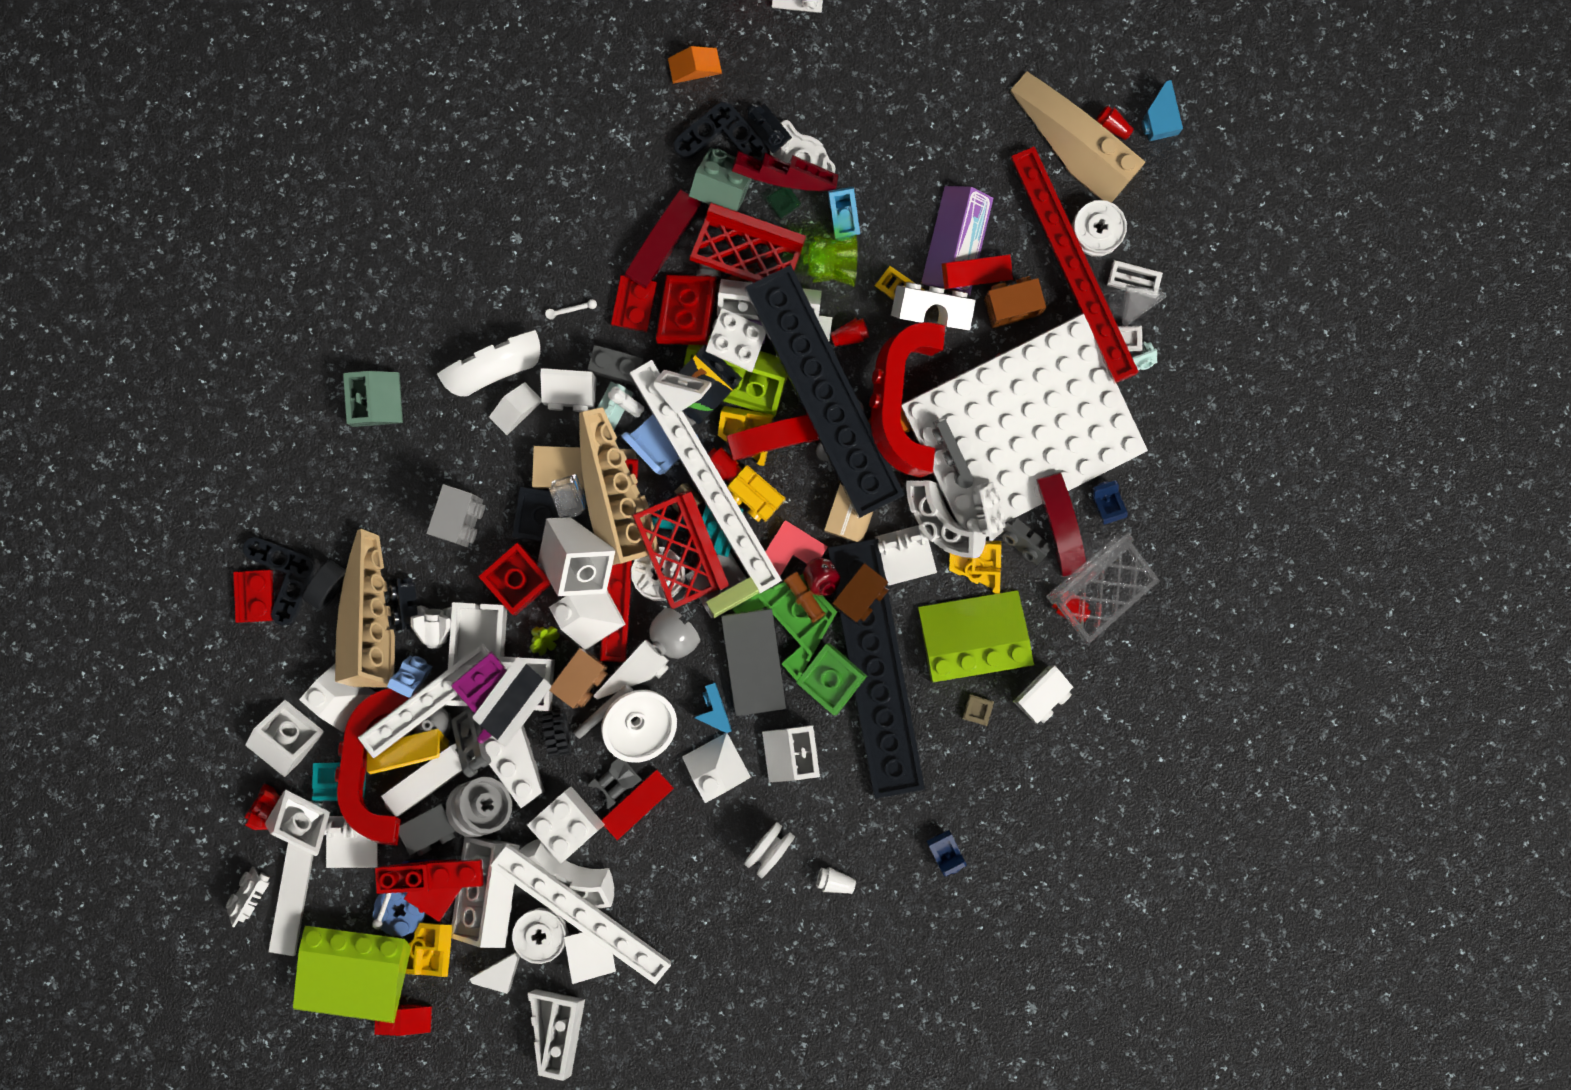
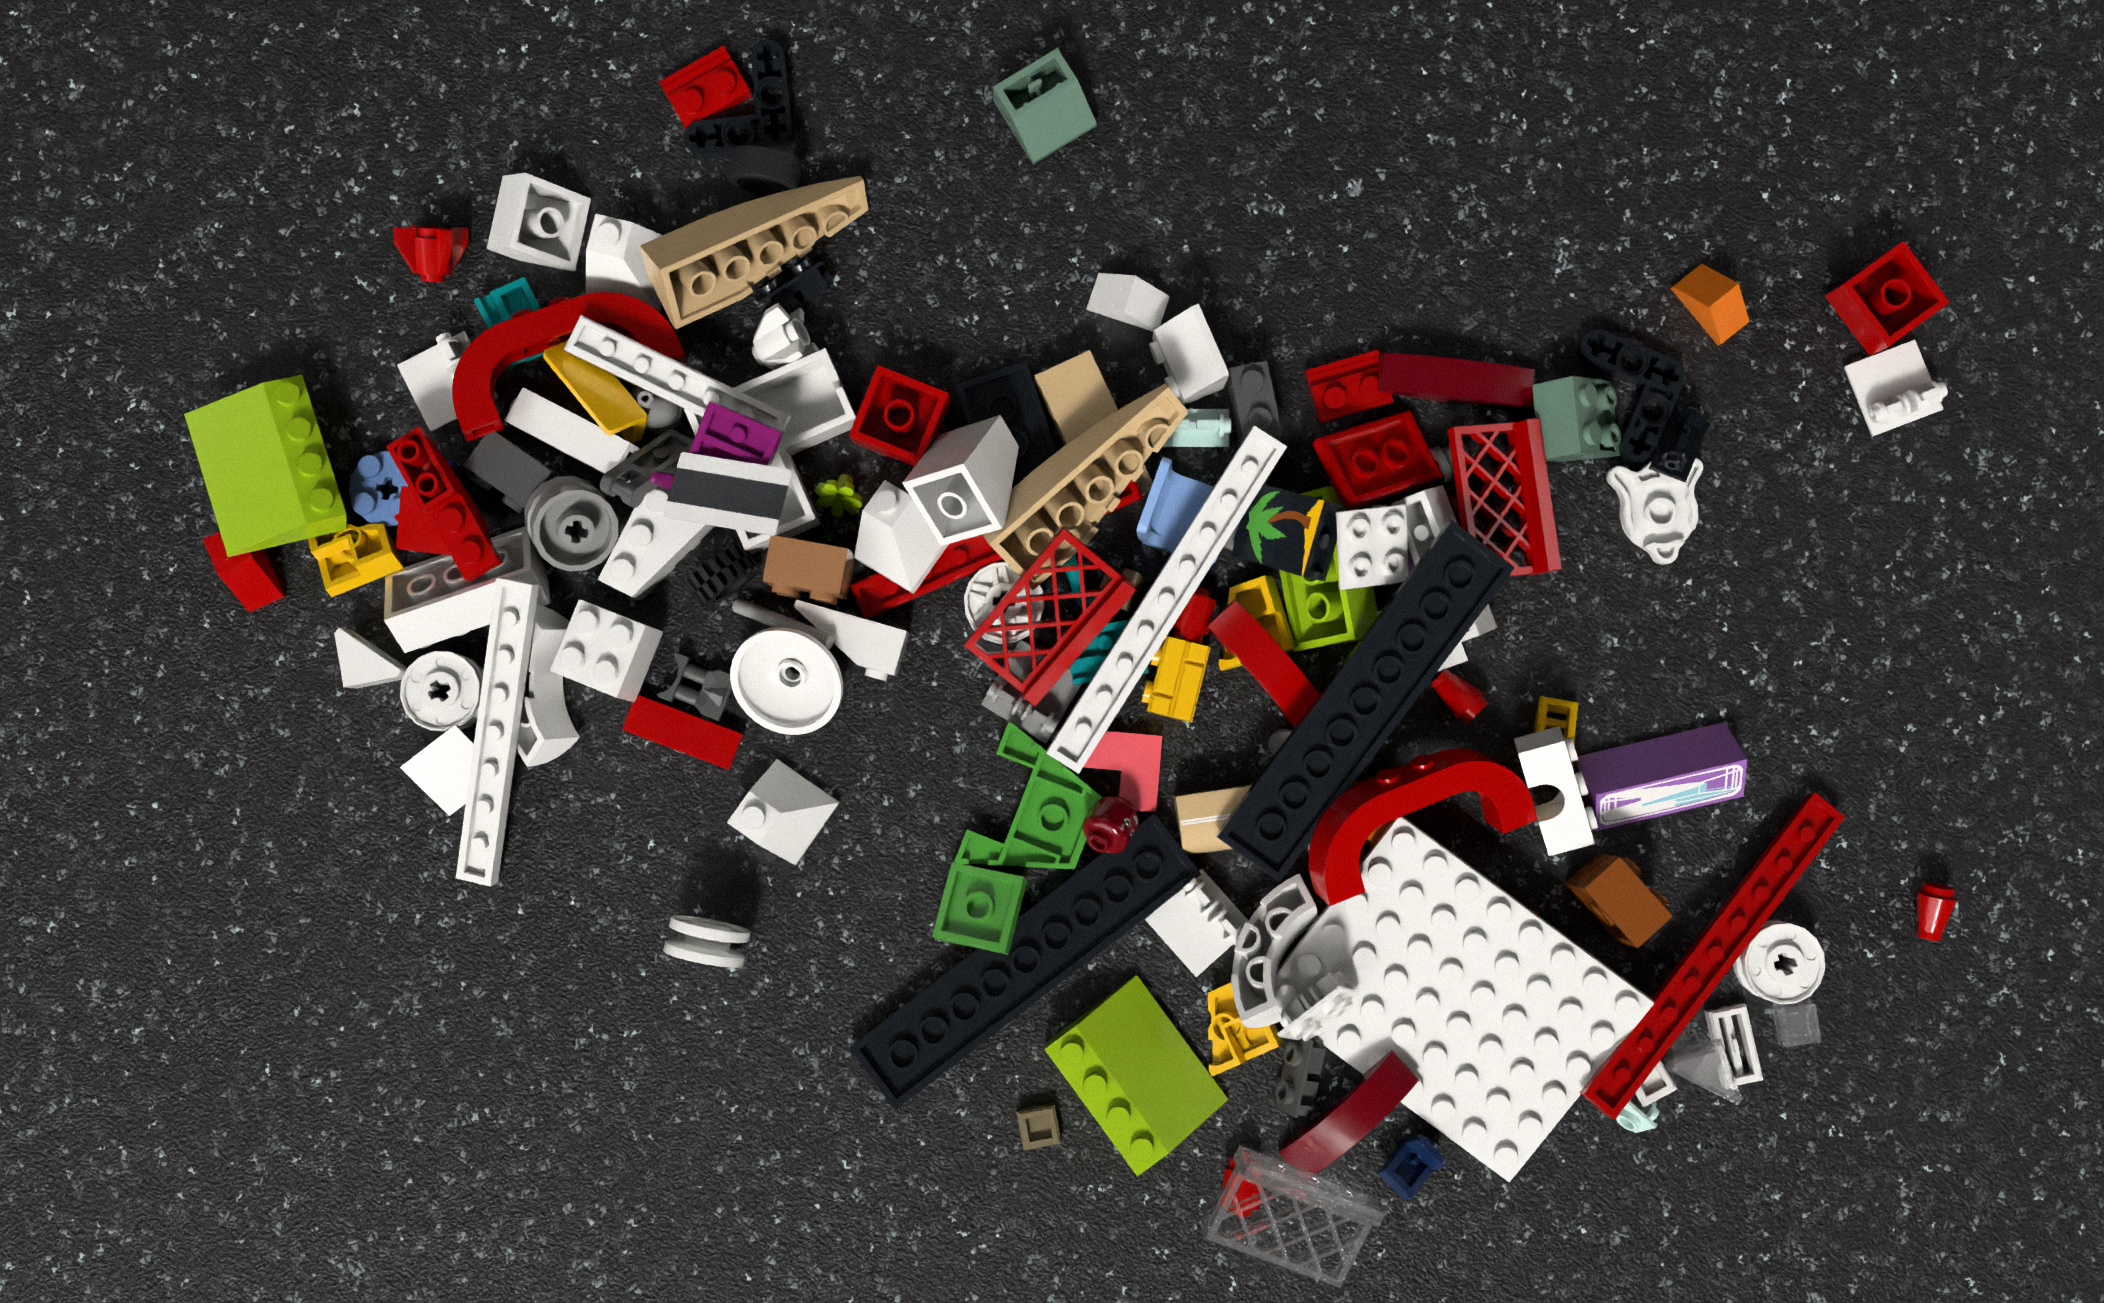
camera: 65 degrees right, 0 degrees up
(239, 905) = (296, 281): white hinge -> none
(291, 900) = (364, 331): white tile -> none
(298, 822) = (430, 296): white slope -> none
(377, 924) = (353, 469): white hinge -> none
(410, 676) = (700, 344): light blue slope -> none
(456, 516) = (941, 293): light grey brick -> none
(491, 364) = (1170, 239): white brick -> none
(551, 314) = (1278, 285): white hinge -> none
(556, 1031) = (327, 778): white wedge -> none
(568, 496) = (1045, 429): clear brick -> none
(626, 401) = (1211, 441): white axle -> none
(671, 635) = (928, 664): light grey cylinder -> none
(680, 389) = (1266, 505): white slope -> none
(717, 717) = (851, 779): dark azure slope -> none
(732, 597) = (1022, 718): yellowish green slope -> none
(753, 662) = (950, 790): dark grey tile -> none
(783, 202) = (1590, 516): clear green tile -> none
(791, 754) = (852, 905): white slope -> none
(795, 174) = (1637, 512): dark red slope -> none
(804, 597) = (1071, 816): dark orange pin -> none
(833, 259) = (1548, 622): clear neon green hat -> none
(835, 881) = (711, 1049): white cone -> none
(844, 212) = (1620, 603): dark azure slope -> none
(861, 593) = (1115, 890): reddish brown brick -> none
(946, 853) = (823, 1183): dark blue bracket -> none
(953, 454) = (1369, 921): dark grey plate -> none
(977, 271) = (1634, 825): red tile -> none
(1044, 694) = (1105, 1208): white slope -> none
(1081, 143) = (1883, 883): tan wedge -> none
(1141, 236) = (1797, 1024): none -> clear tile
(1163, 115) = (1980, 973): dark azure slope -> none

